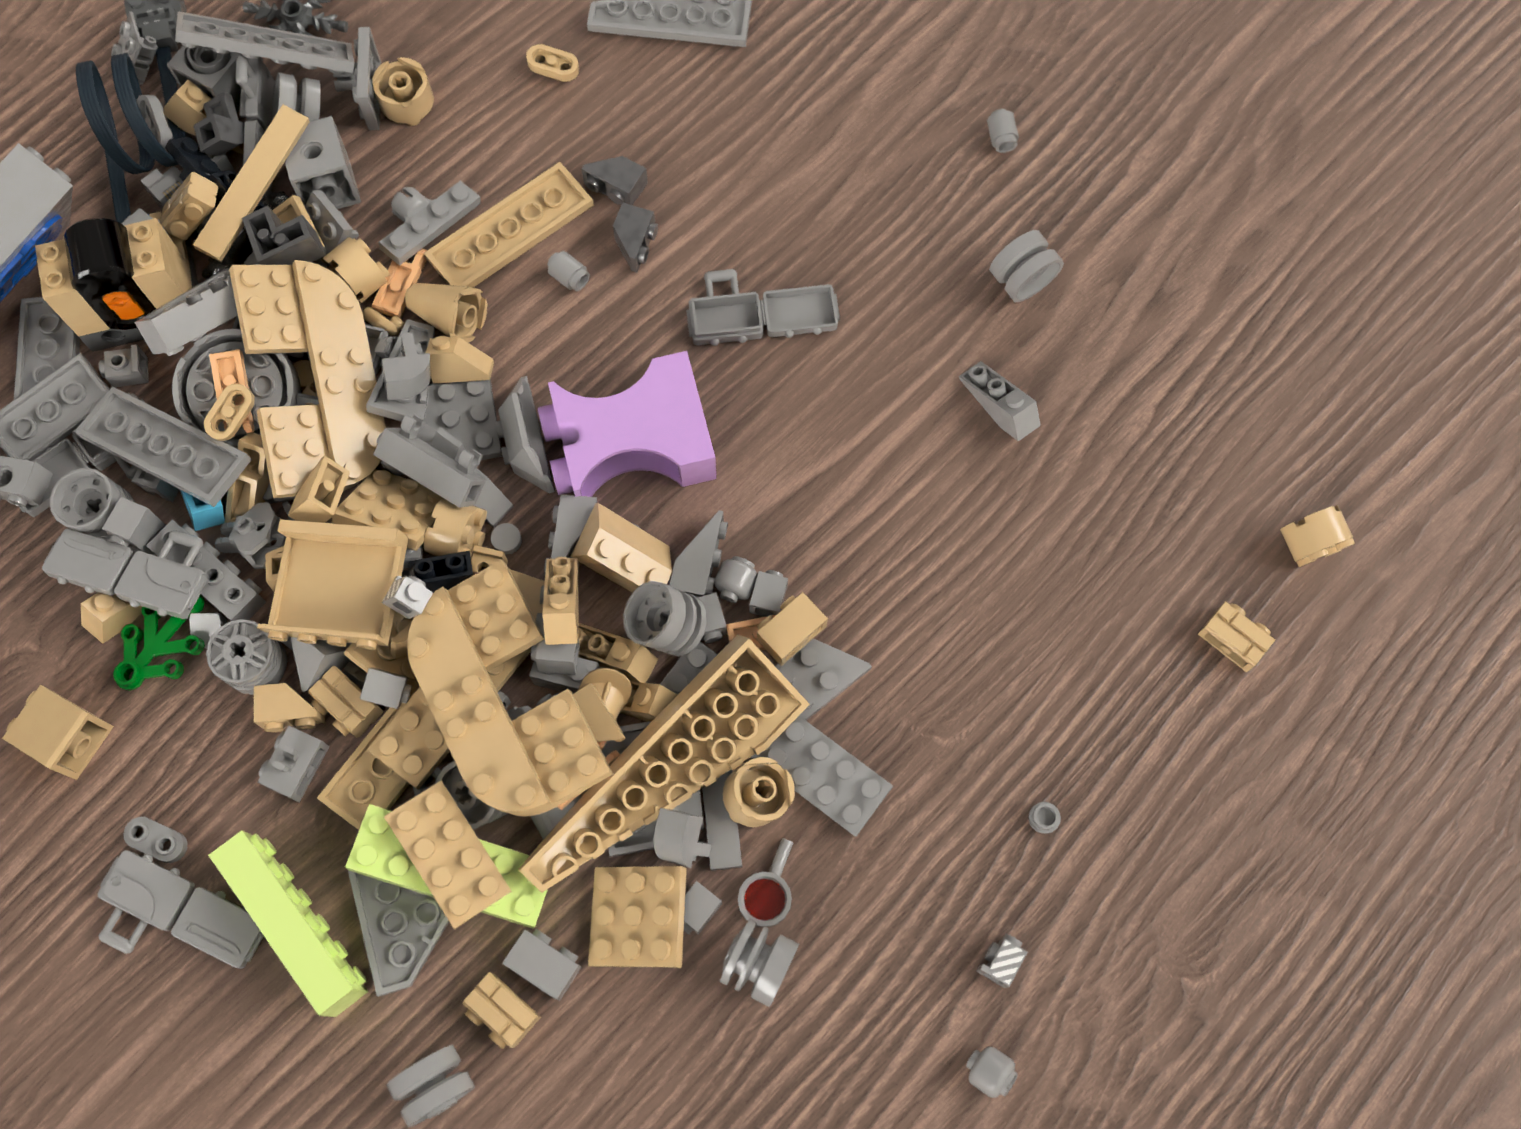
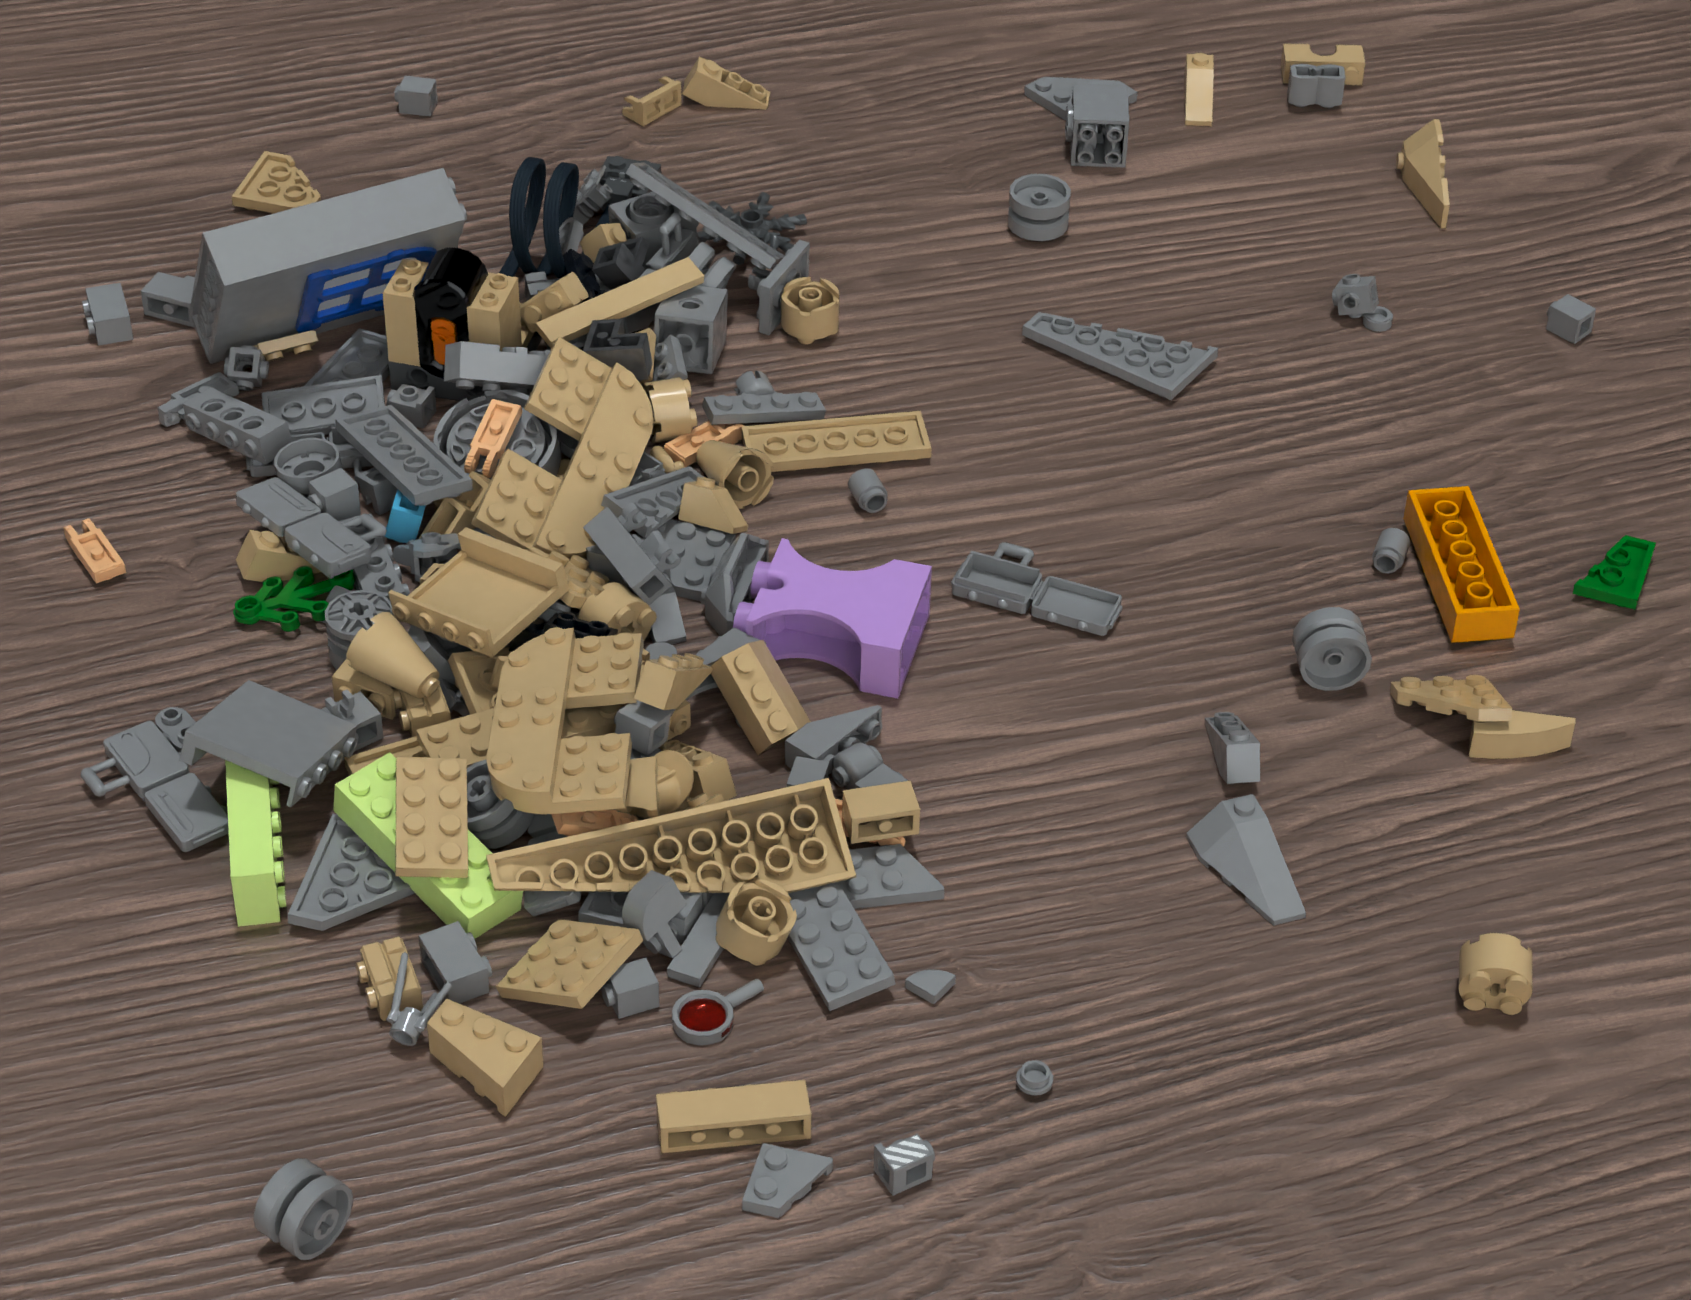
camera: 30 degrees right, 30 degrees down
(57, 732) = (160, 620): tan slope -> none
(226, 410) = (477, 443): tan plate -> none
(254, 839) = (272, 738): none -> light grey panel
(304, 688) = (393, 657): none -> tan cone
(320, 492) = (520, 527): tan slope -> none
(385, 688) = (465, 691): light grey brick -> none
(406, 374) = (658, 488): light grey brick -> none
(407, 596) = (541, 612): brick -> none
(428, 1082) = (286, 989): light grey wheel -> none
(547, 1053) = (411, 1022): none -> light grey plant
(554, 62) = (969, 343): tan plate -> none
(617, 178) = (966, 443): flat silver slope -> none
(625, 1045) = (486, 1052): none -> tan wedge
(633, 232) = (954, 487): flat silver slope -> none
(664, 618) = (762, 749): light grey wheel -> none
(758, 962) = (659, 1042): light grey wheel -> none
(851, 992) = (733, 1116): none -> tan brick
(915, 766) = (930, 984): none -> light grey tile
(918, 1026) = (781, 1178): none -> light grey wing
(991, 1072) = (827, 1239): light grey head -> none
(1066, 122) = (1461, 564): none -> light orange brick
(1069, 504) = (1244, 850): none -> light grey wedge
(1138, 264) = (1470, 697): none -> tan plate
(1178, 69) = (1620, 574): none -> green wing
(1194, 277) = (1522, 737): none -> tan slope
(1237, 636) = (1349, 1024): tan brick -> none

